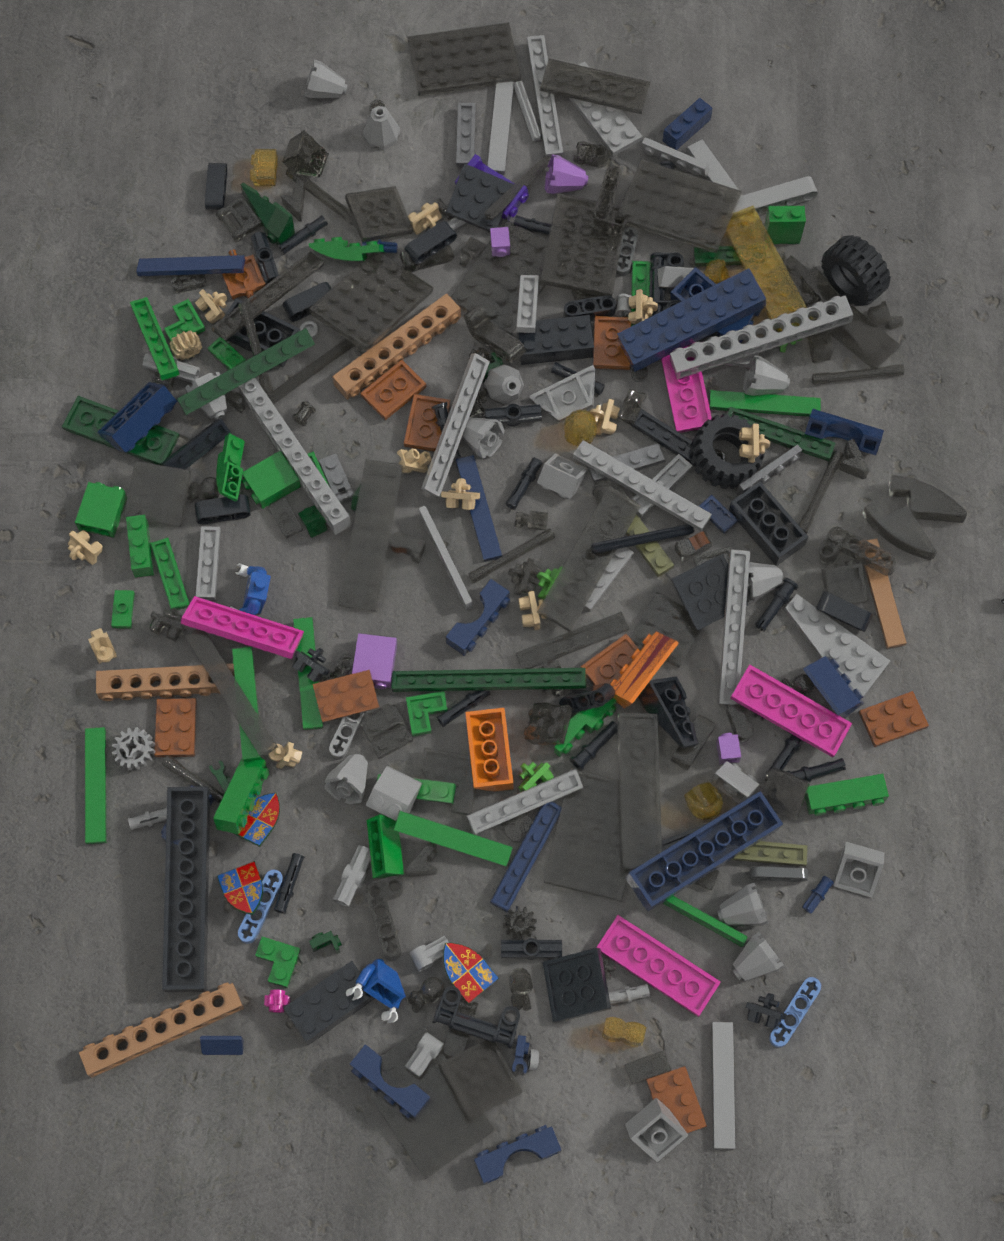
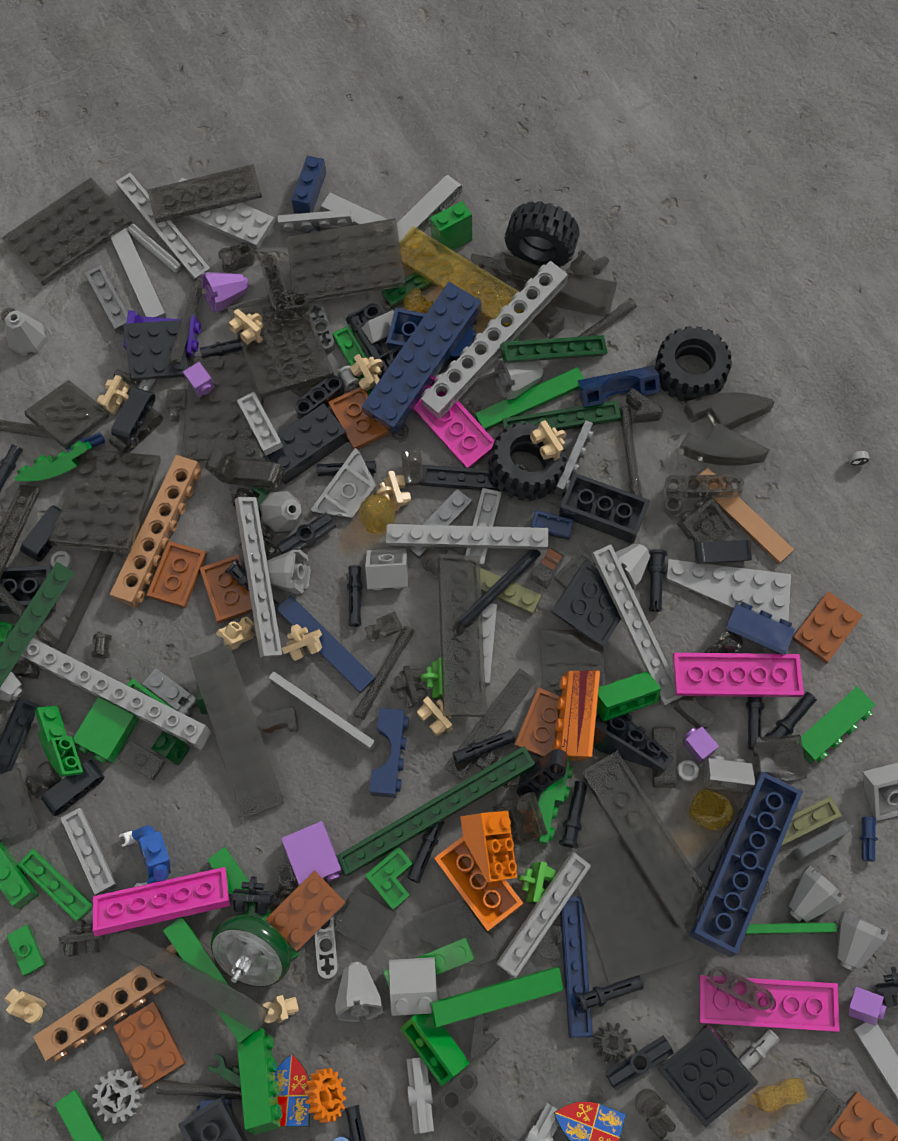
camera: 25 degrees left, 0 degrees up
(279, 704) = (245, 960): none -> flat silver wheel
(284, 833) = (324, 1094): none -> orange gear
(515, 724) = (491, 844): none -> orange slope
(530, 884) = (597, 998): none -> black pin
(554, 654) = (485, 746): none -> black pin
(567, 217) = (250, 324): none -> tan hips
(640, 929) = (751, 988): none -> clear smoke beam
(691, 677) = (627, 695): none -> green brick
(706, 764) = (687, 771): none -> light grey tile
(732, 1009) = (867, 1006): none -> medium lavender brick
(807, 371) = (553, 349): none -> dark green plate
(928, 428) = (698, 343): none -> black tyre

